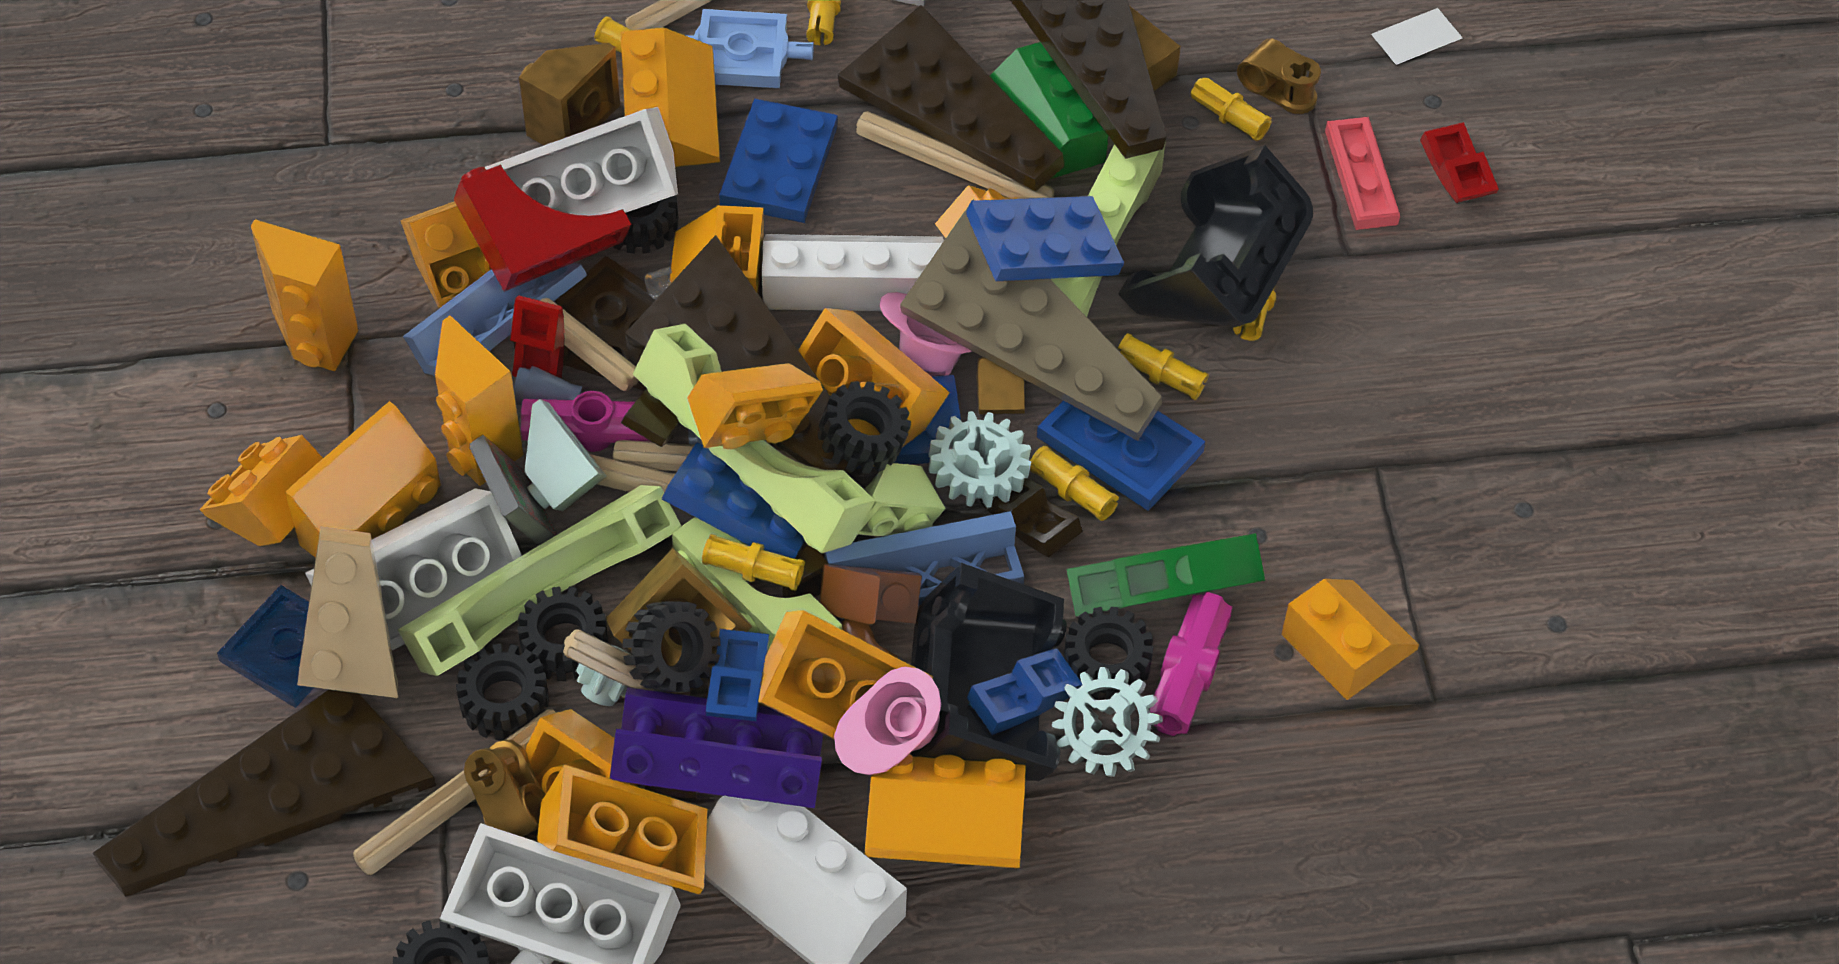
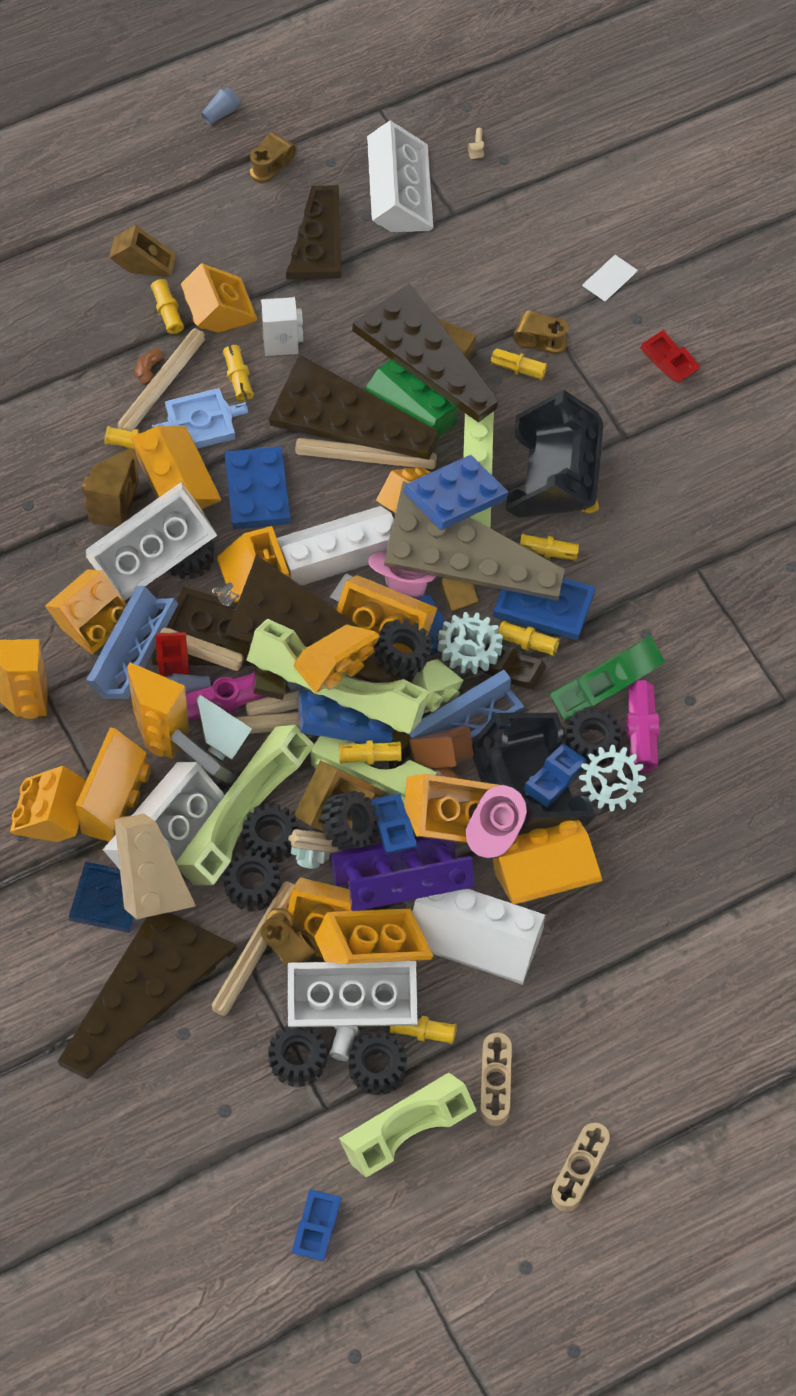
camera: 20 degrees left, 5 degrees up
(525, 236) = (131, 591): red arch -> none
(1345, 635) = (723, 679): light orange slope -> none
(1362, 173) = (614, 381): coral tile -> none

